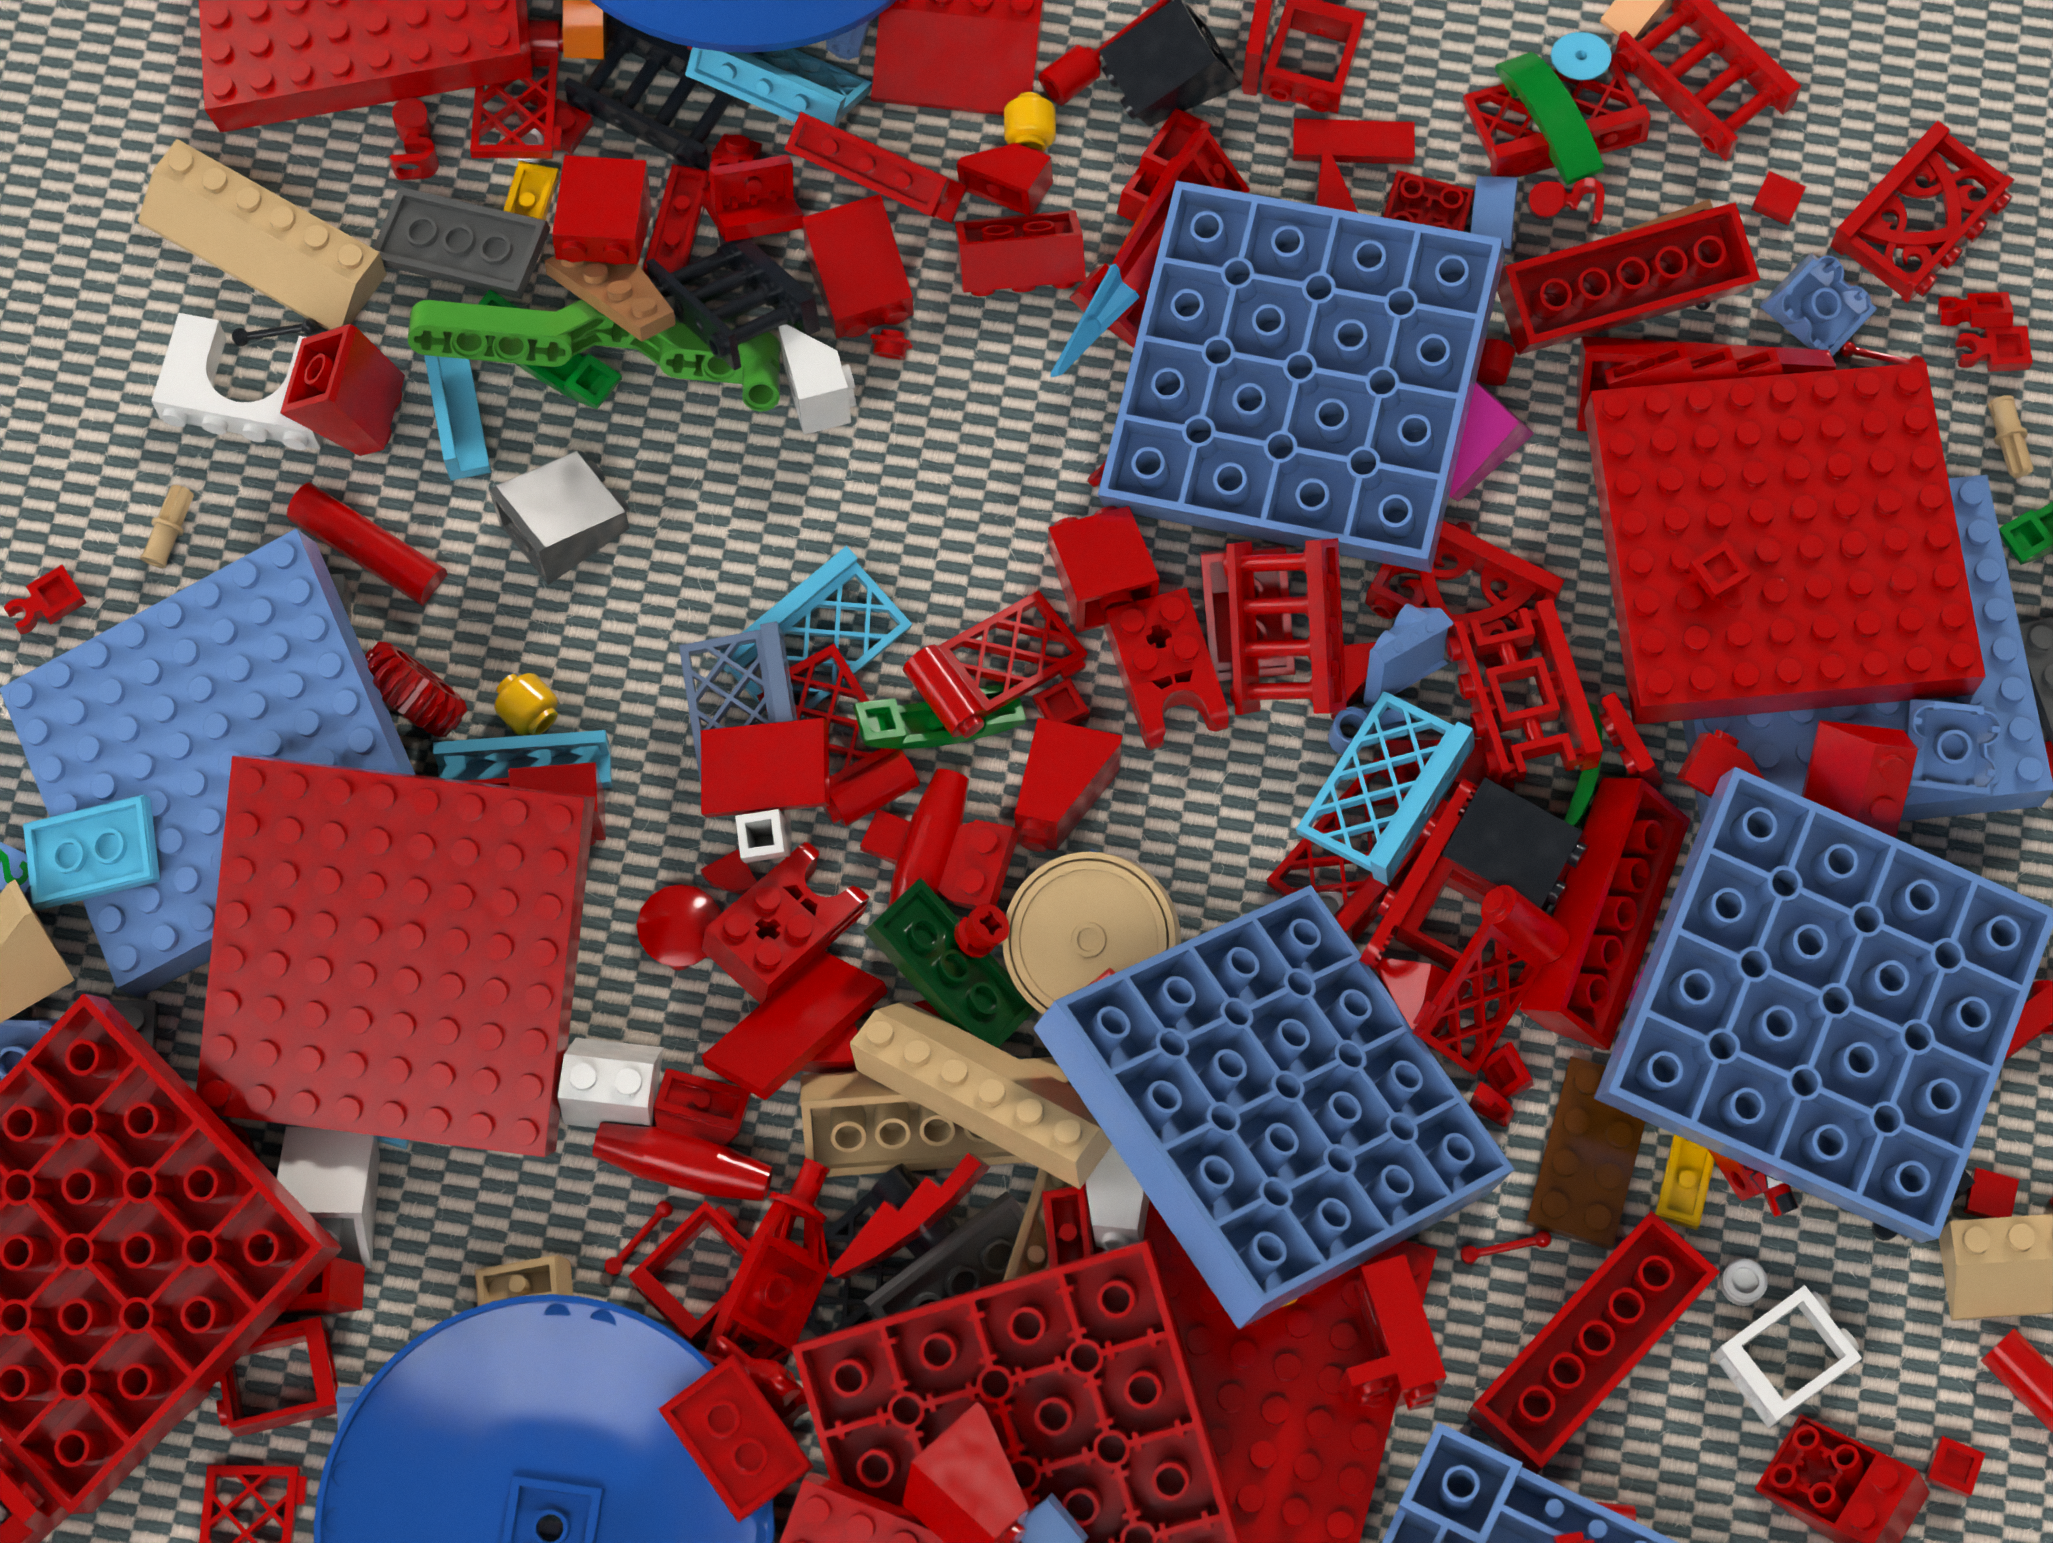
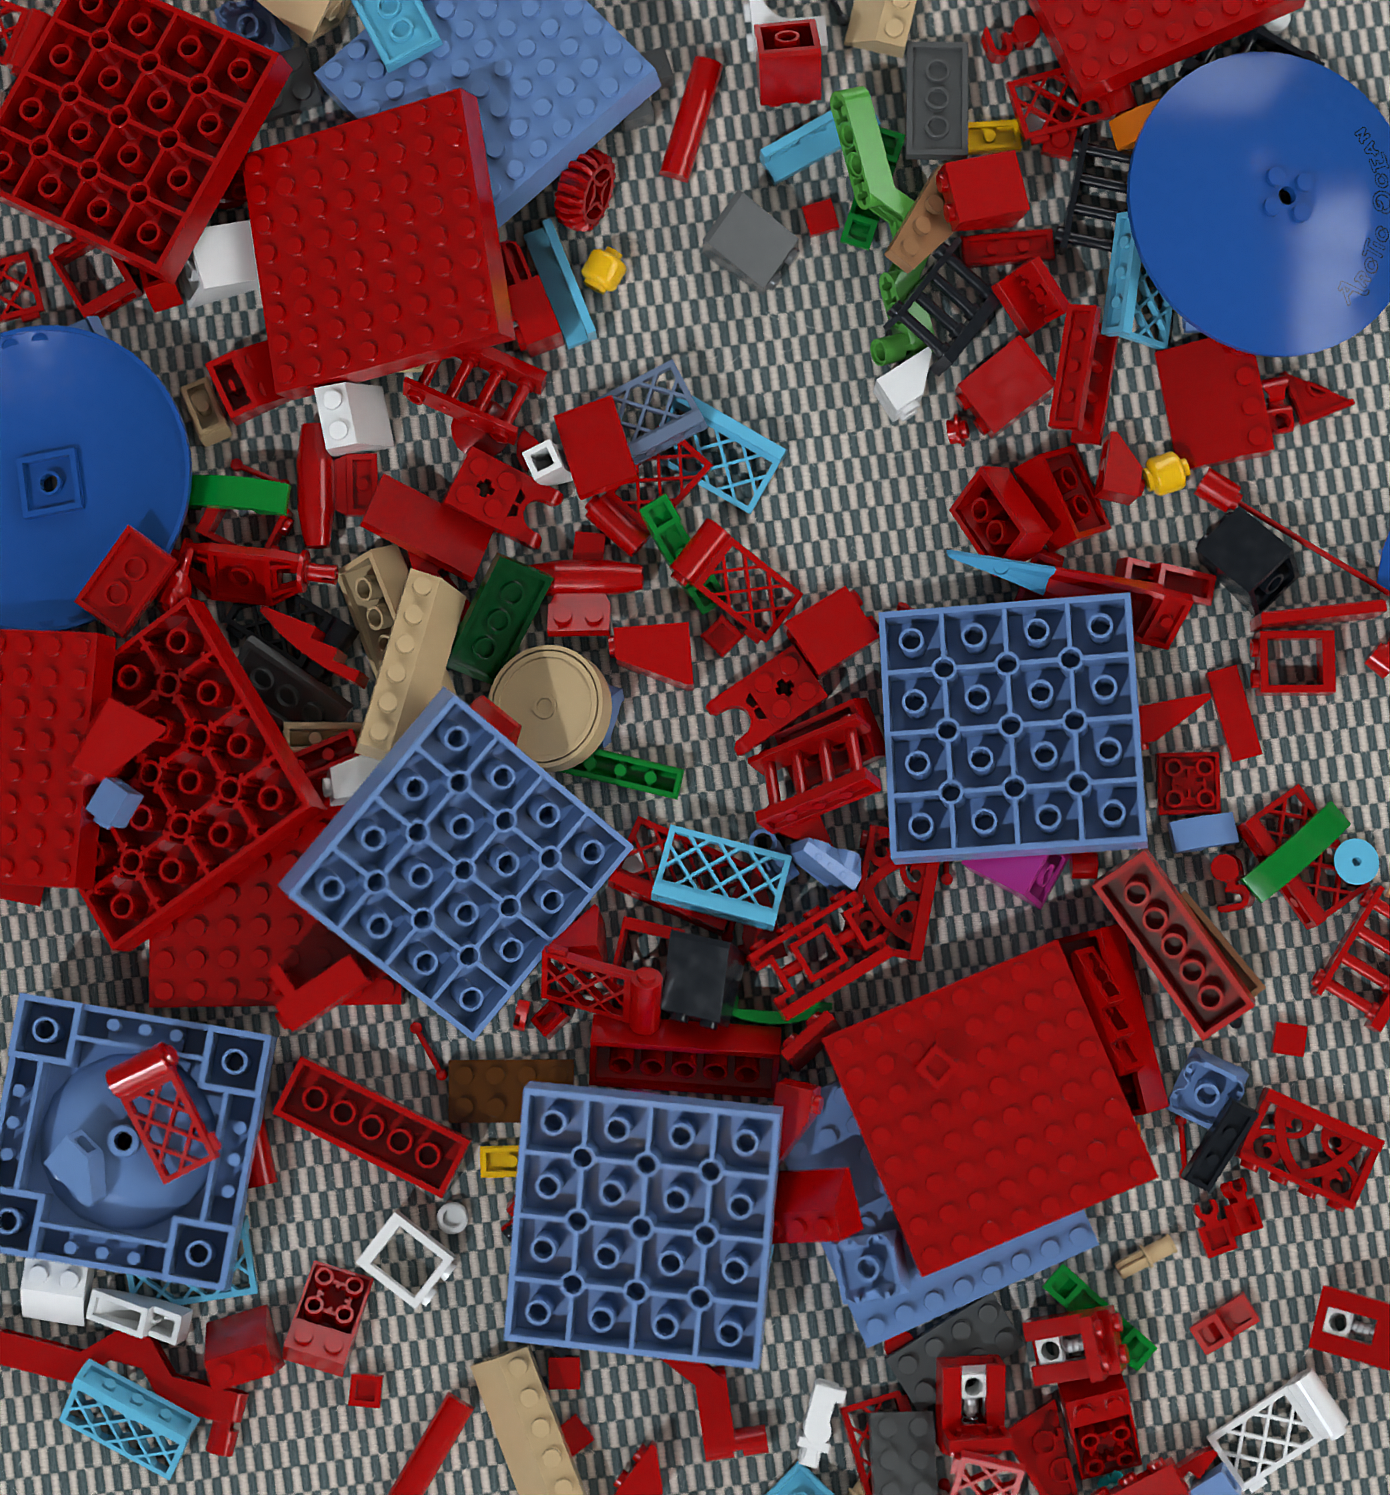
camera: 75 degrees right, 15 degrees up
(506, 1204) = (245, 382): none -> red slope
(555, 427) = (820, 218): none -> red tile
(608, 872) = (500, 367): none -> red fence
(664, 1252) = (239, 494): none -> green slope
(735, 149) = (1070, 270): red plate -> none
(981, 930) = (524, 626): red wheel -> none
(1022, 321) = (1000, 516): none -> red slope
(1211, 863) = (631, 773): none -> green brick
(1396, 905) = (690, 922): red piece -> none
(1892, 308) = (1219, 1144): none -> black tile

